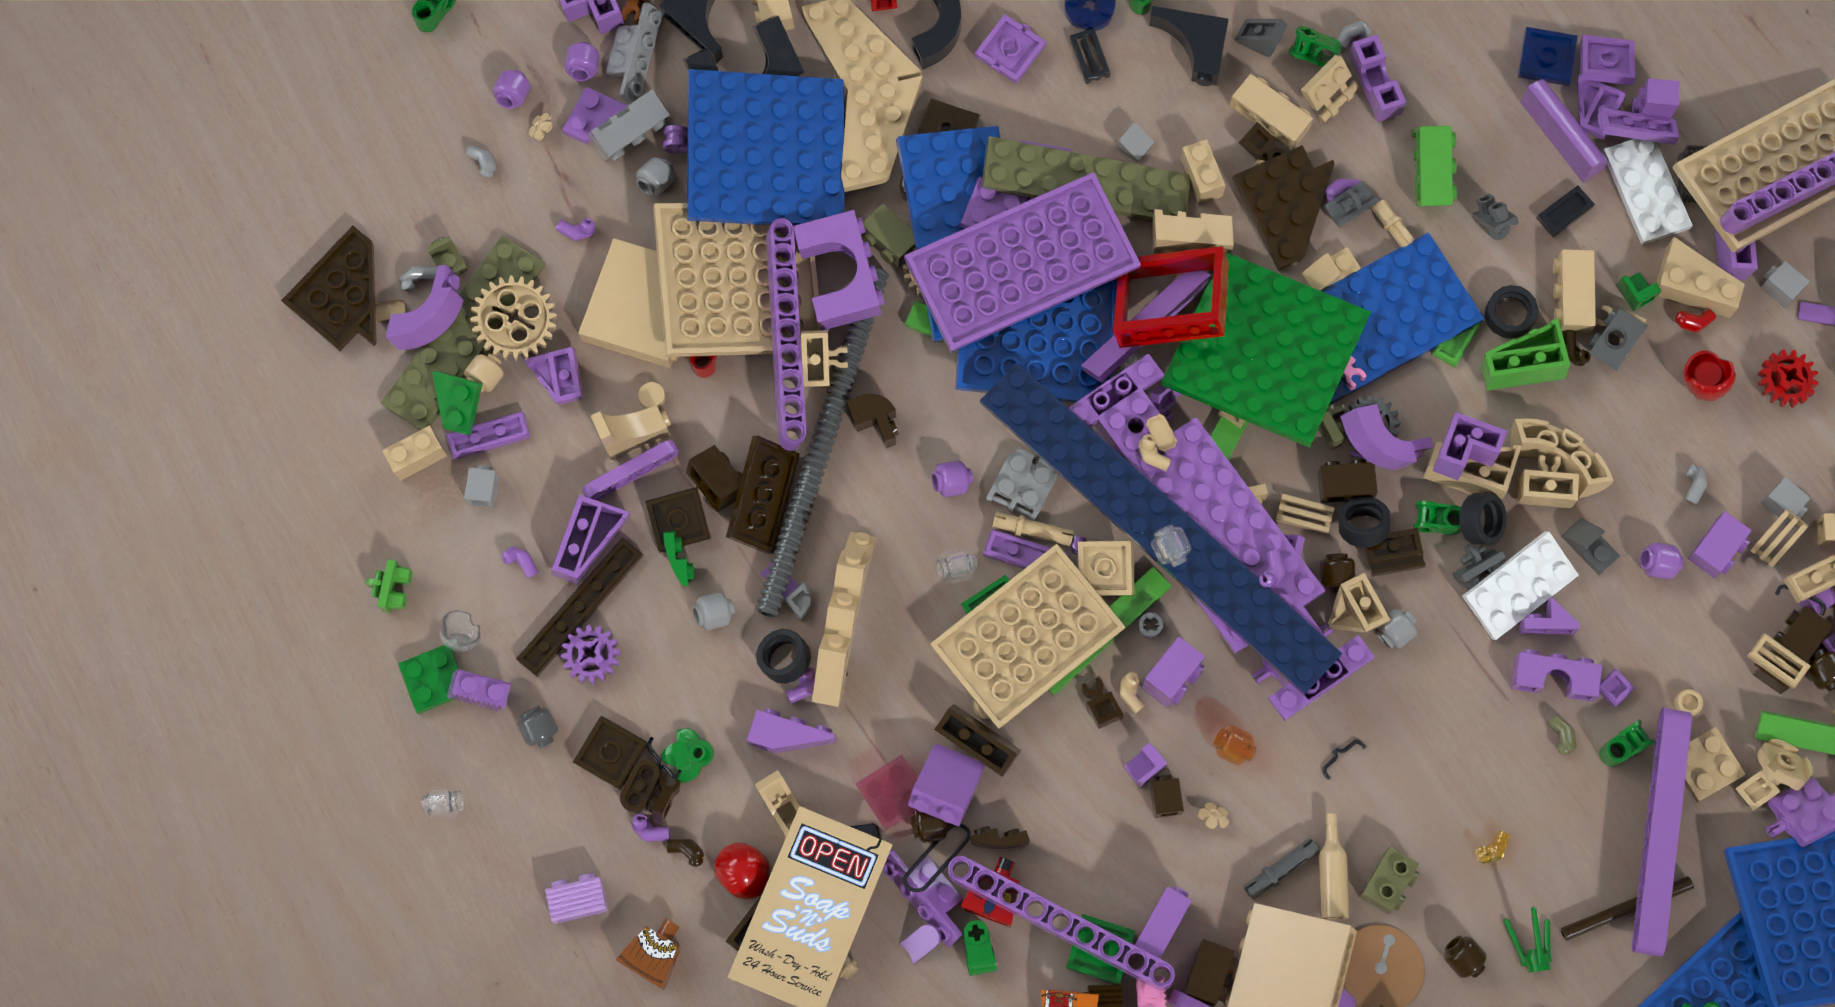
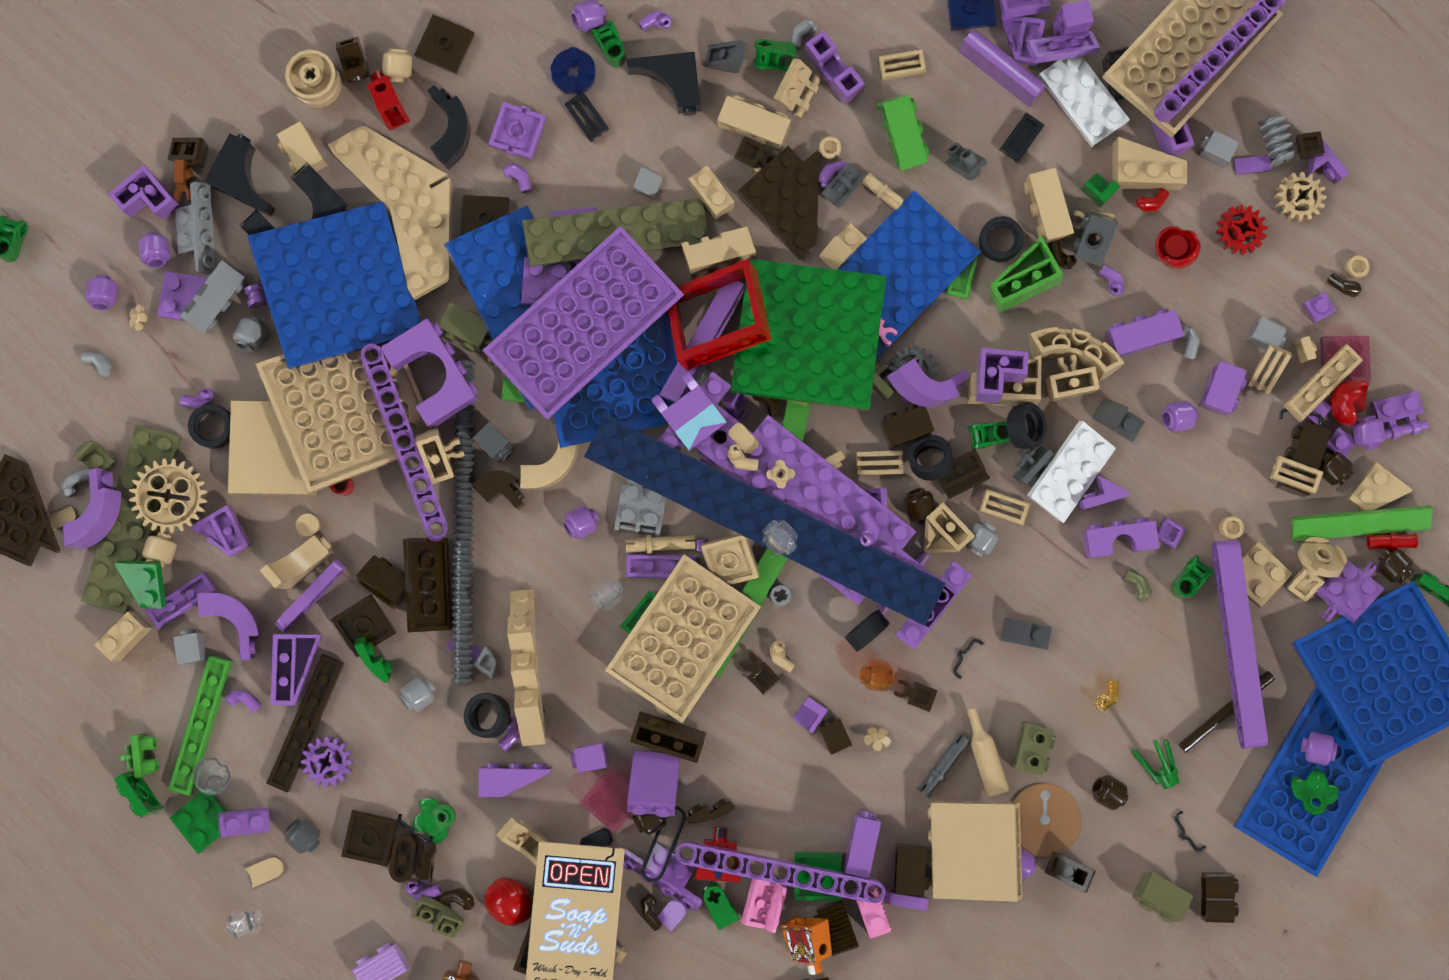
camera: 20 degrees left, 10 degrees up
(376, 631) = (138, 794): none -> green plate
(465, 573) = (200, 724): none -> bright green tile
(483, 755) = (265, 870): none -> tan piece
(537, 453) = (237, 612): none -> medium lavender arch
(571, 245) = (193, 426): none -> black tyre
(659, 861) = (442, 917): none -> olive slope
(883, 364) = (494, 442): none -> dark grey brick
(884, 734) = (590, 757): none -> medium lavender brick
(895, 934) = (647, 912): none -> dark brown arm
(937, 415) = (549, 473): none -> tan arch
(999, 94) = (517, 172): none -> medium lavender arm
(1030, 961) = (764, 905): none -> bright pink bracket
(1111, 393) = (692, 415): none -> medium lavender flag
(1173, 672) = (812, 632): medium lavender brick -> none
(1191, 489) = (780, 480): none -> tan plate
(1201, 409) = (772, 405): none -> dark brown arm
(1237, 689) = (867, 630): none -> black tyre
(1276, 782) = (919, 696): none -> dark brown plate
(1347, 163) = (830, 148): none -> tan tile
(1418, 751) = (1026, 633): none -> dark grey slope
(1428, 613) = (985, 501): none -> tan tile
(1453, 107) = (902, 73): none -> tan tile
(1628, 391) = (1114, 278): none -> medium lavender arm
(1647, 458) = (1145, 332): none -> medium lavender brick
(1723, 977) = (1319, 748): none -> medium lavender head

